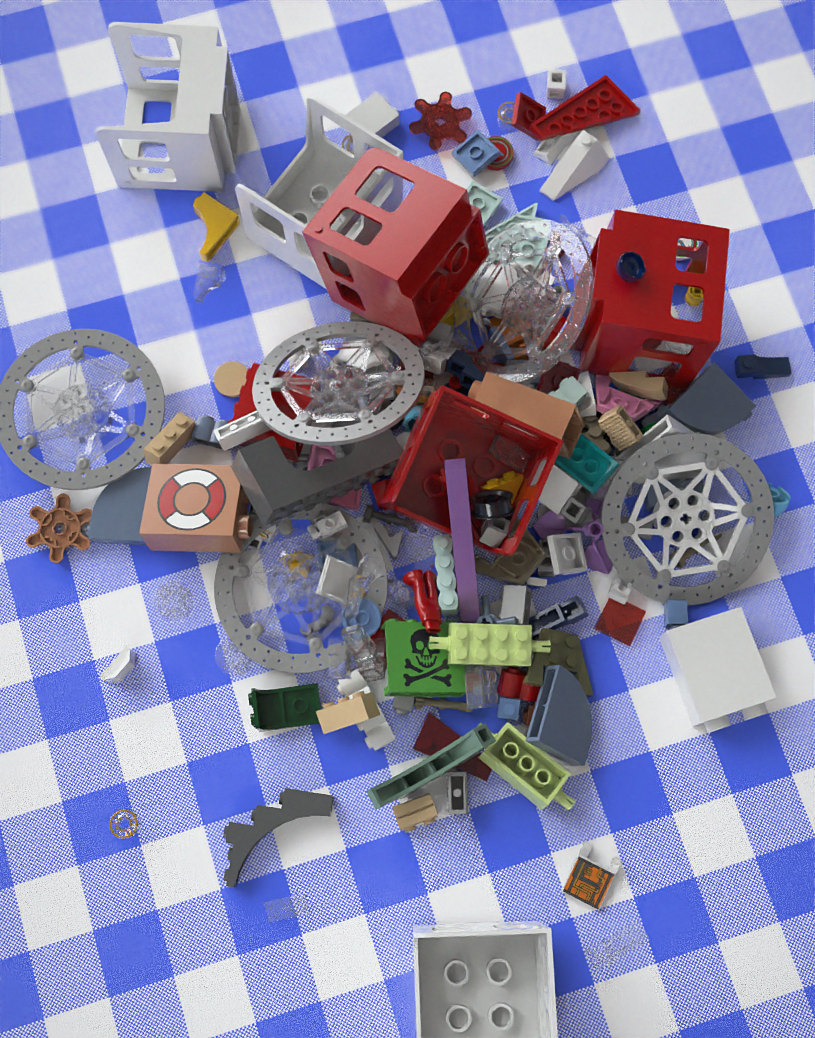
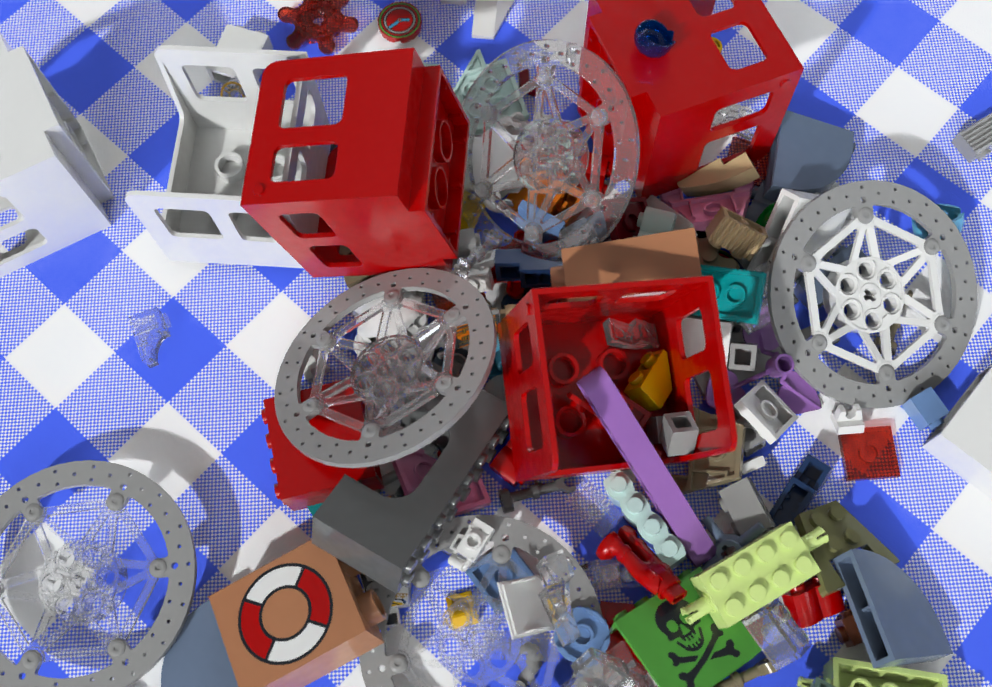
camera: 25 degrees left, 5 degrees down
(169, 440) = (213, 553): tan brick -> none
(204, 431) = (259, 513): sand blue brick -> none
(219, 222) = (126, 261): yellow arch -> none
(230, 378) = (245, 435): tan tile -> none
(240, 430) = (297, 490): white slope -> none
(391, 544) = (556, 522): light grey slope -> none
(476, 153) = (378, 30): medium blue tile -> none
(492, 504) = (658, 403): black wheel -> none
(508, 708) = (822, 638): medium blue brick -> none
(762, 367) = (828, 90): dark blue slope -> none

